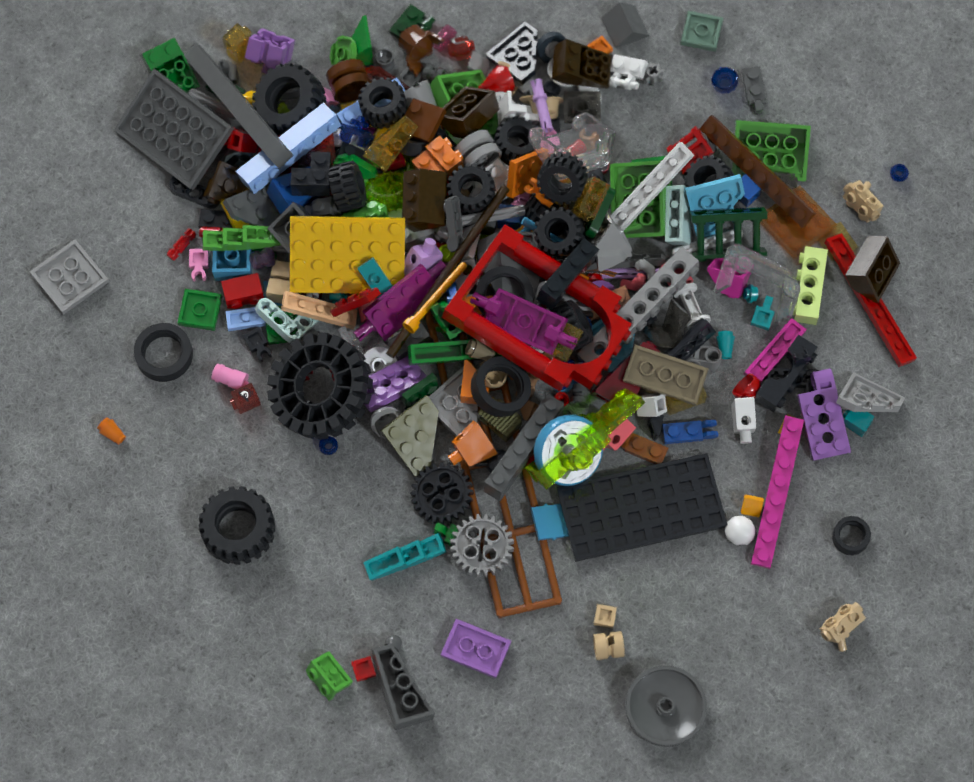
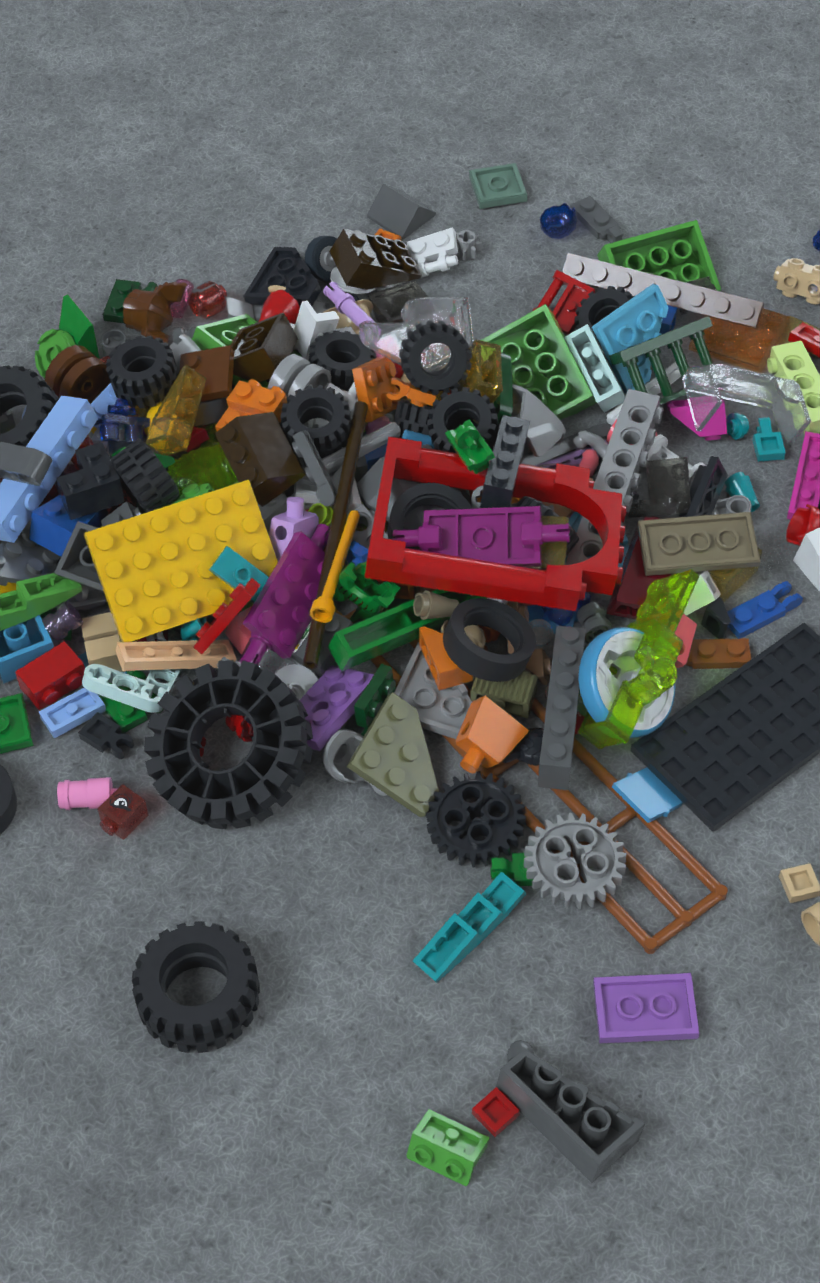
camera: 25 degrees left, 15 degrees down
(331, 451) = (277, 818): clear blue plate -> none
(547, 255) = (470, 447): none -> green hips
(652, 185) = (552, 329): white plate -> none

